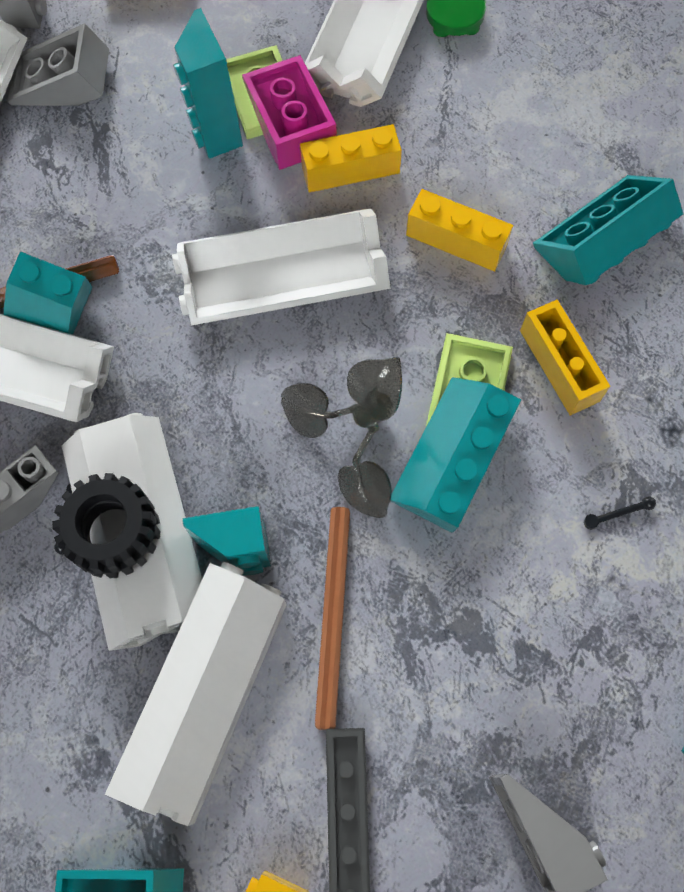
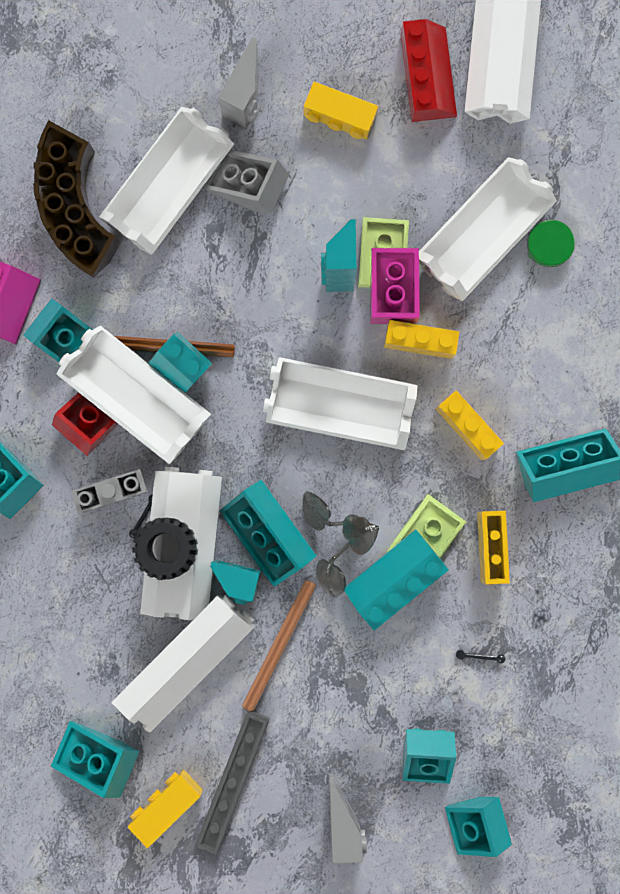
camera: 20 degrees right, 15 degrees up
(251, 465) = (267, 533): none -> teal slope
(621, 681) = (428, 756): none -> teal slope

